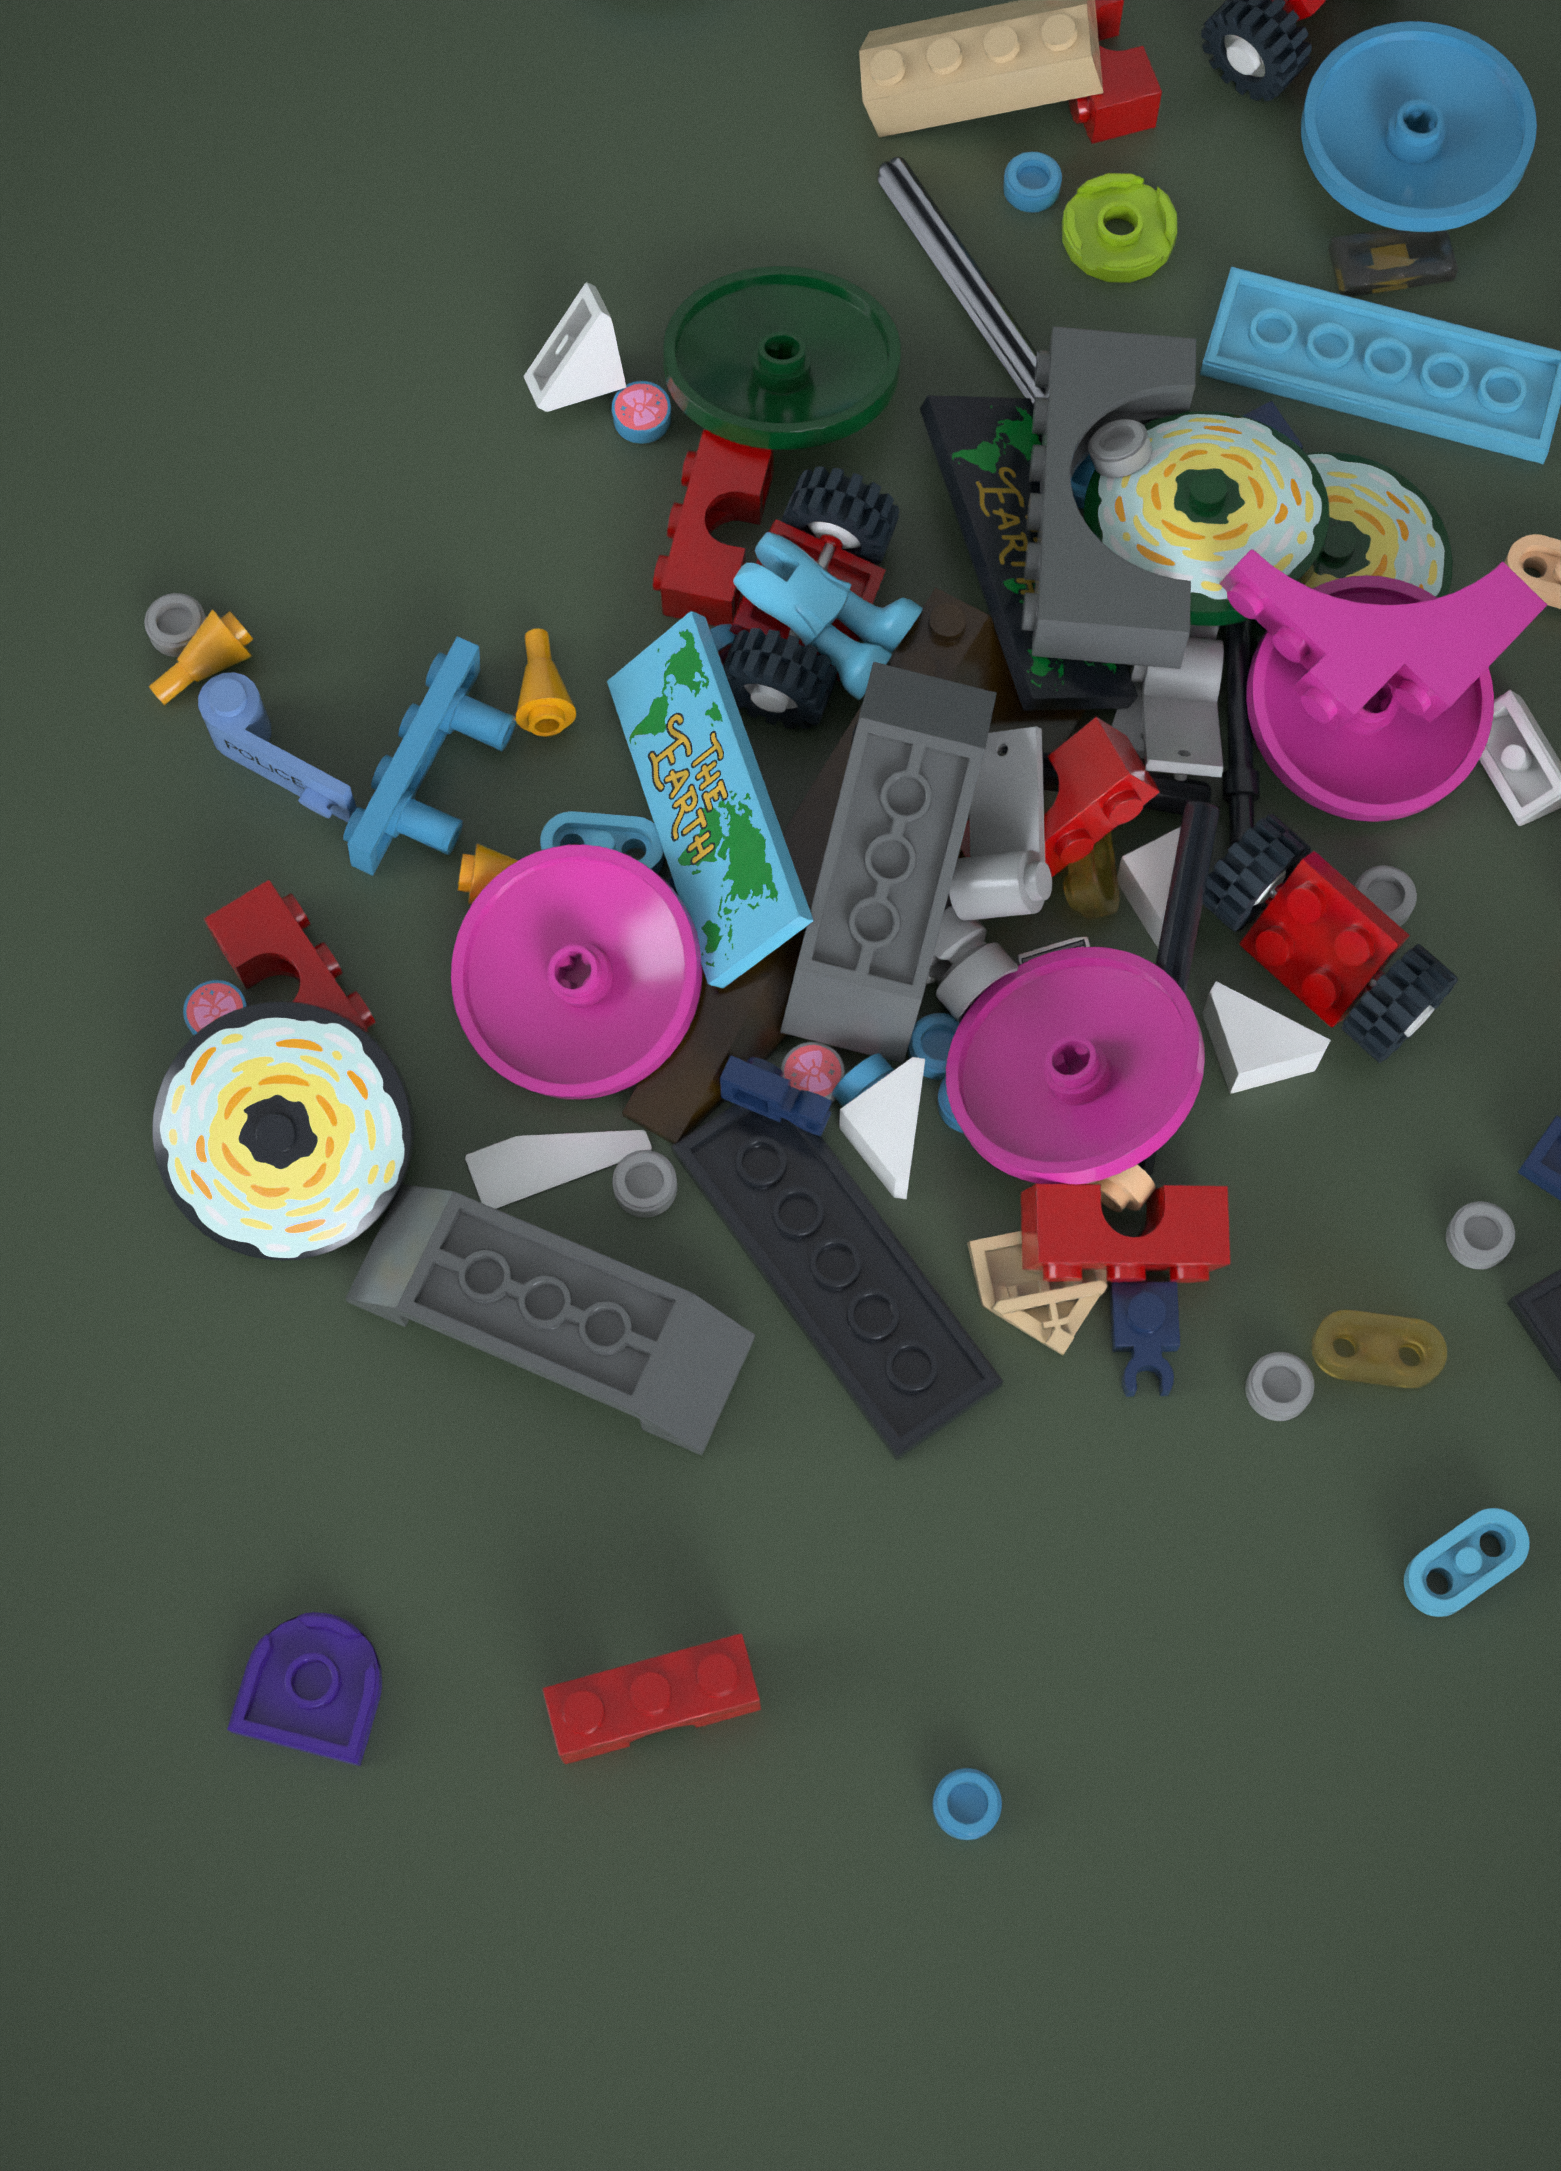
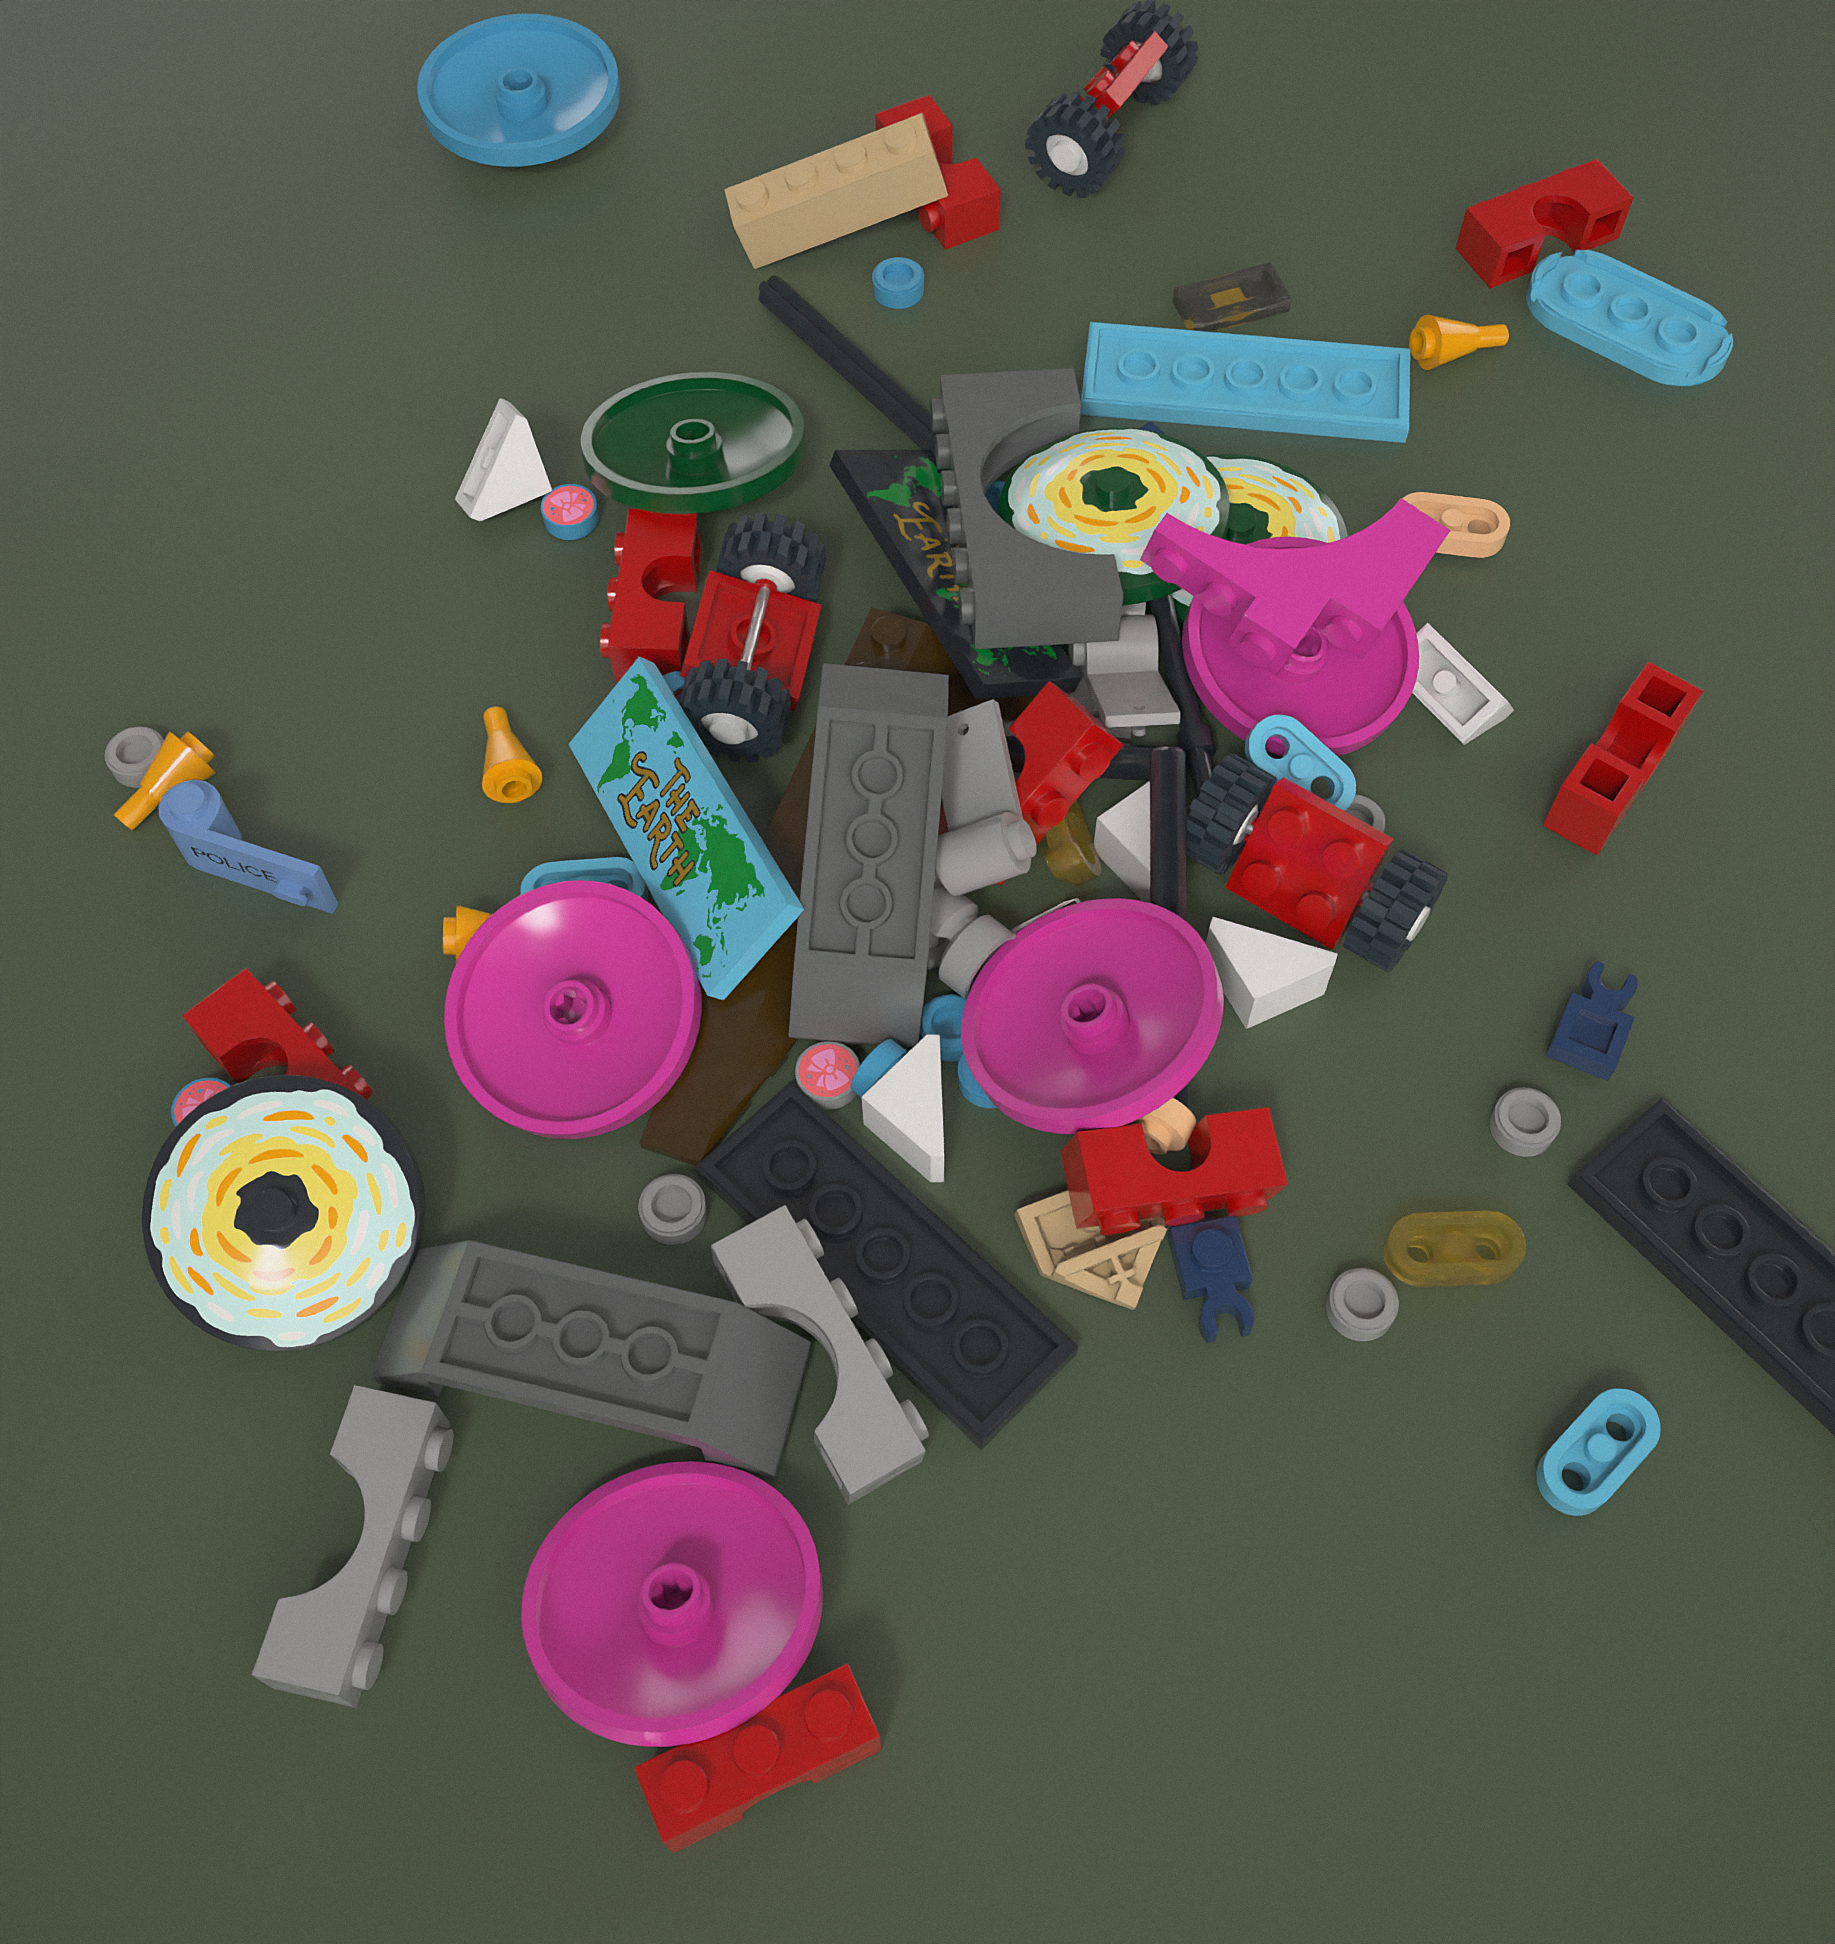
camera: 10 degrees left, 10 degrees down
(287, 1526) = (330, 1636): none -> light grey arch
(311, 1688) = (375, 1818): dark purple tile -> none
(423, 731) = (391, 816): dark azure plate -> none
(540, 1162) = (564, 1205): white sticker -> none
(595, 1550) = (672, 1603): none -> dark pink dish
(733, 1270) = (776, 1274): none -> light grey arch
(764, 1090) = (784, 1094): dark blue plate -> none
(809, 601) = (753, 632): medium azure piece -> none
(967, 1804) = (1127, 1816): dark azure tile -> none
(1112, 255) = (983, 329): lime tile -> none
(1120, 448) = (1022, 465): light grey tile -> none
(1339, 832) = (1303, 758): none -> medium azure plate
(1418, 126) = (1231, 189): dark azure dish -> none

